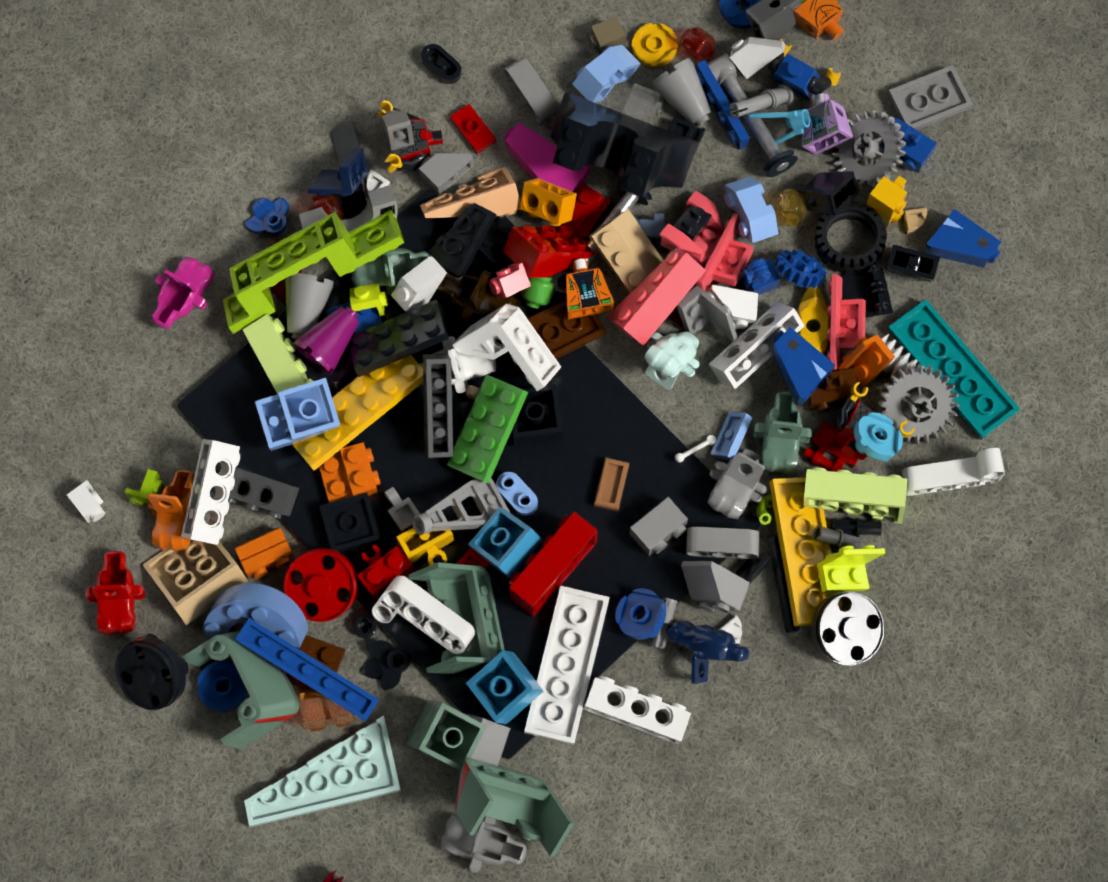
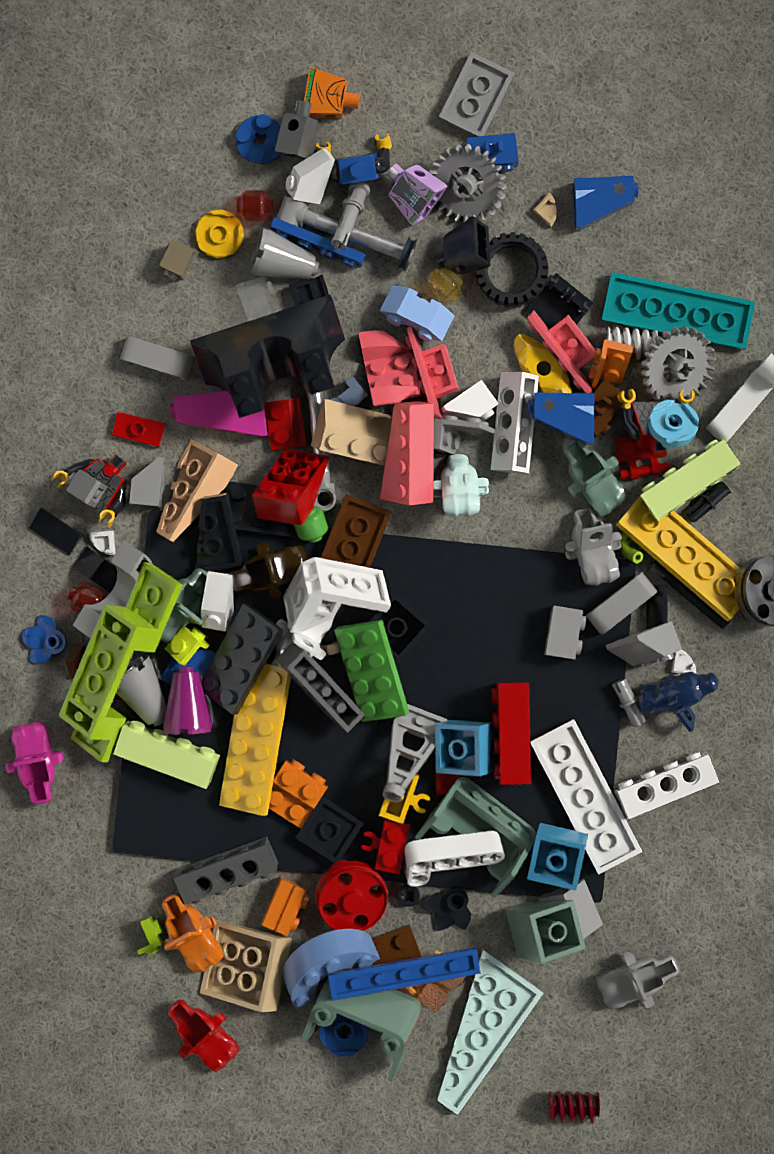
camera: 40 degrees left, 15 degrees up
(87, 502) = (116, 984): white brick -> none
(151, 672) = (286, 1071): black piece -> none
(200, 500) = (197, 897): white brick -> none
(297, 414) = (219, 787): light blue slope -> none
(345, 179) = (75, 566): dark blue bracket -> none
(402, 511) = (363, 786): light grey plate -> none
(443, 63) = (66, 396): black plate -> none
(509, 281) = (287, 540): brick -> none
(512, 799) = (632, 929): sand green windscreen -> none
(516, 493) = (434, 696): light blue plate -> none
(547, 201) = (255, 445): light orange brick -> none
(586, 291) = (351, 495): torso -> none
(605, 71) = (204, 294): light blue brick -> none
(611, 484) = (498, 628): medium nougat tile -> none
(652, 621) = (615, 700): blue plate -> none
(679, 457) = (541, 526): white hinge -> none
(693, 221) = (383, 366): black plate -> none
(731, 435) = (555, 511): light blue plate -> none
(760, 276) = (470, 364): blue brick -> none
(795, 119) = (390, 207): medium azure plant -> none
(800, 268) = (496, 331): blue gear -> none
(835, 537) = (702, 525): dark grey axle -> none
(846, 569) = (731, 546): neon yellow bracket -> none
(888, 199) = (518, 215): yellow brick -> none
(913, 263) = (579, 251): black brick -> none

